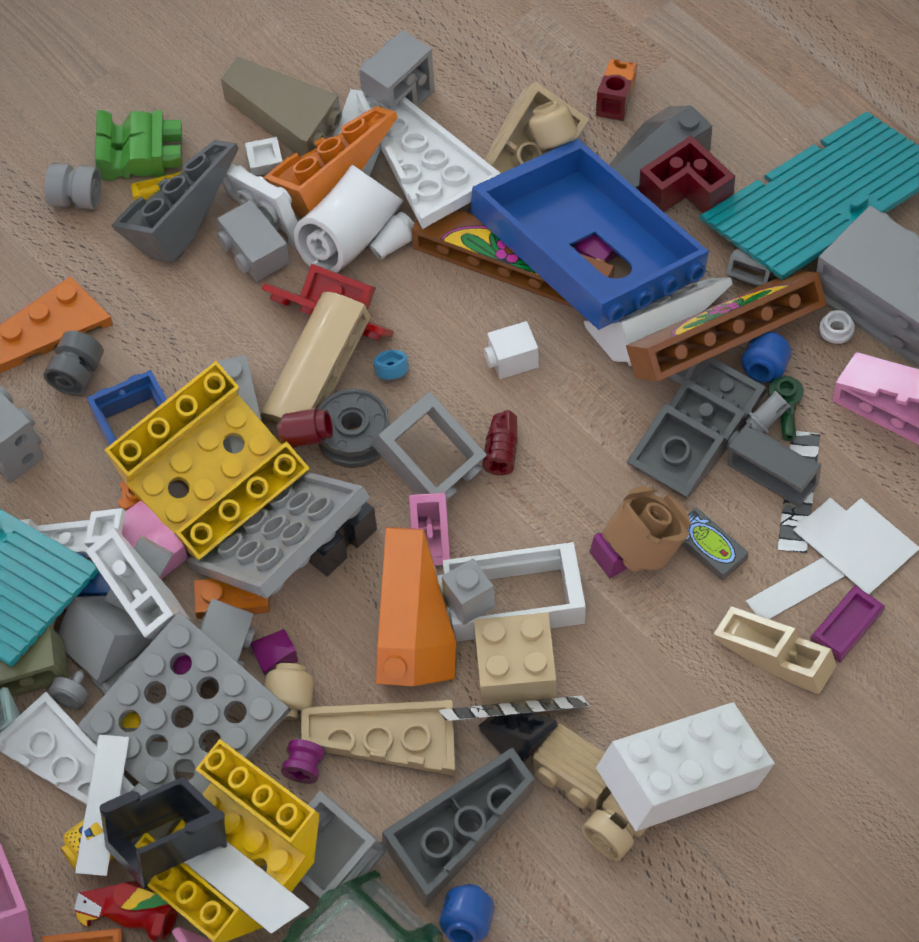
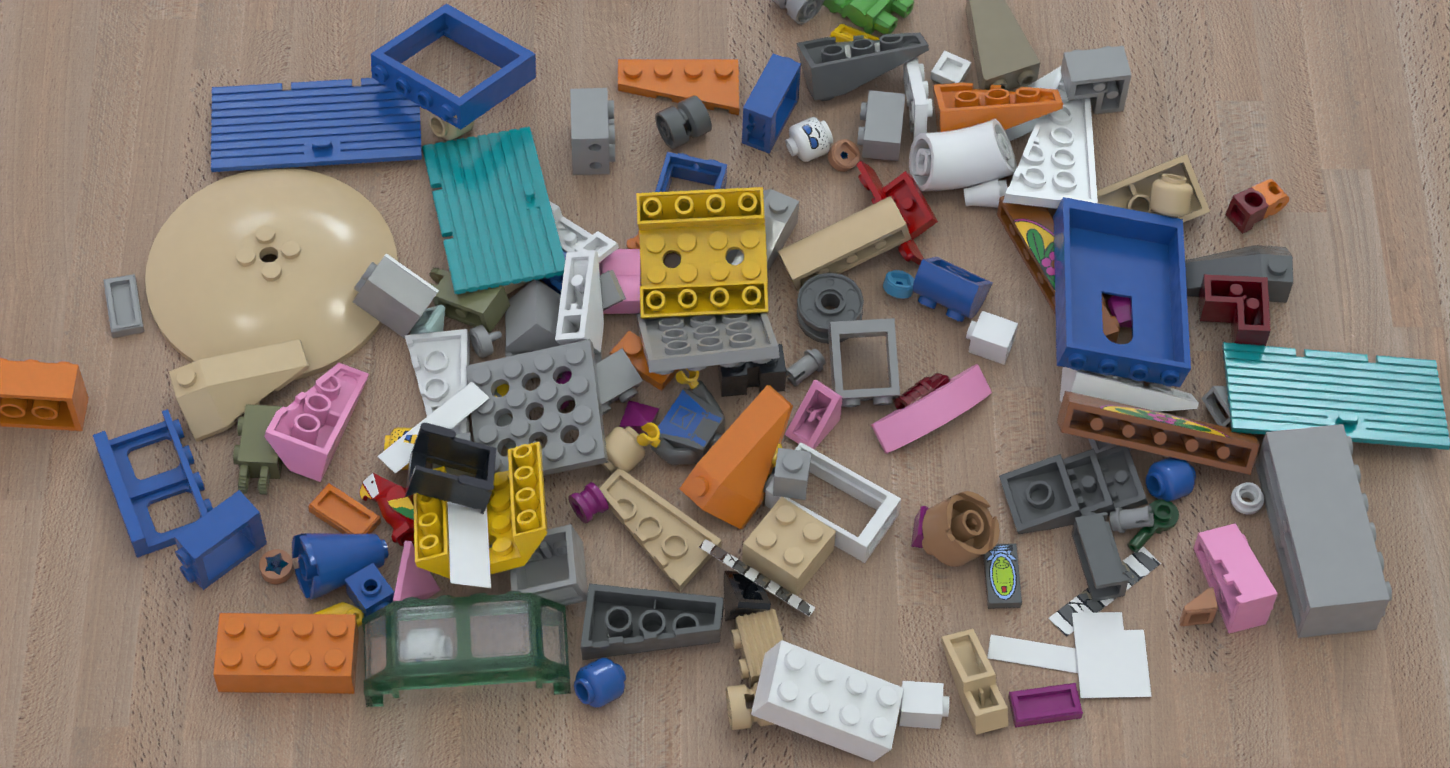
camera: 35 degrees right, 0 degrees up
(140, 290) = (771, 103): none -> blue window
(199, 298) = (809, 139): none -> white head
(240, 291) = (843, 155): none -> nougat tile
(305, 427) = (790, 281): dark red brick -> none
(331, 622) = (689, 426): none -> torso
(379, 485) = (804, 367): none -> light grey pin
(441, 334) = (951, 287): none -> blue brick
(523, 452) = (932, 410): none -> bright pink slope
(758, 701) = (923, 705): none -> white brick
(894, 443) = (1200, 610): none -> nougat slope

